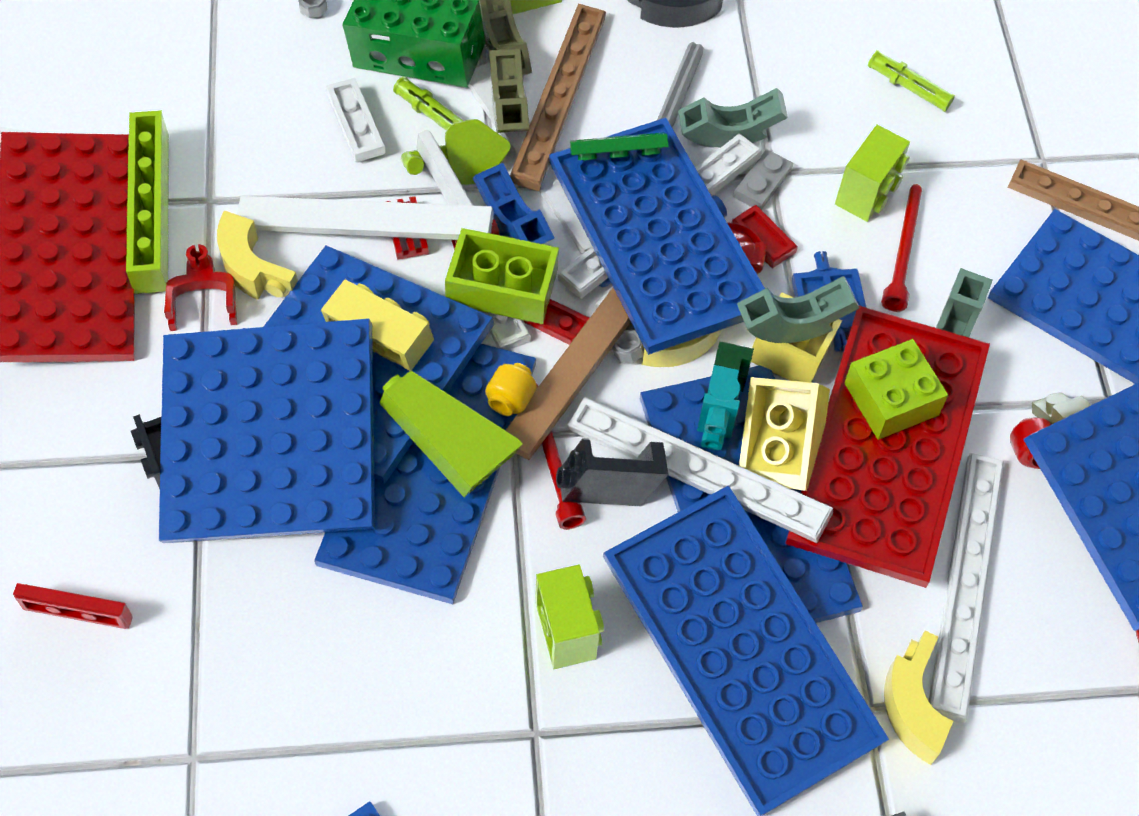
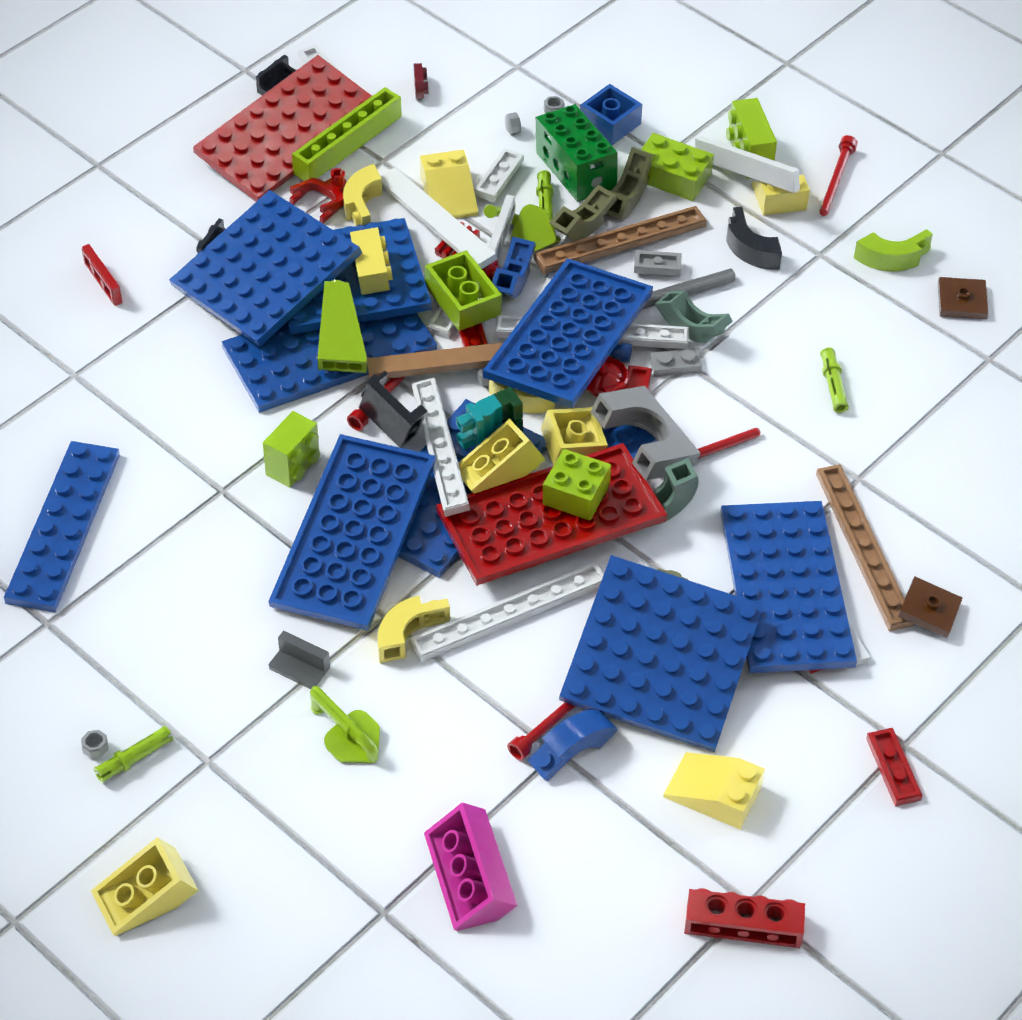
camera: 50 degrees right, 10 degrees down
(141, 79) = (420, 85): none -> dark red plate
(297, 51) = (512, 123): none -> light grey tile
(318, 166) = (449, 182): none -> light yellow slope
(510, 389) = (397, 339): yellow head -> none
(619, 145) = (601, 276): green plate -> none
(621, 90) = (657, 263): none -> light grey plate
(800, 317) = (569, 413): sand green arch -> none
(873, 173) = (730, 397): lime brick -> none
(902, 269) = (641, 409): none -> light grey arch

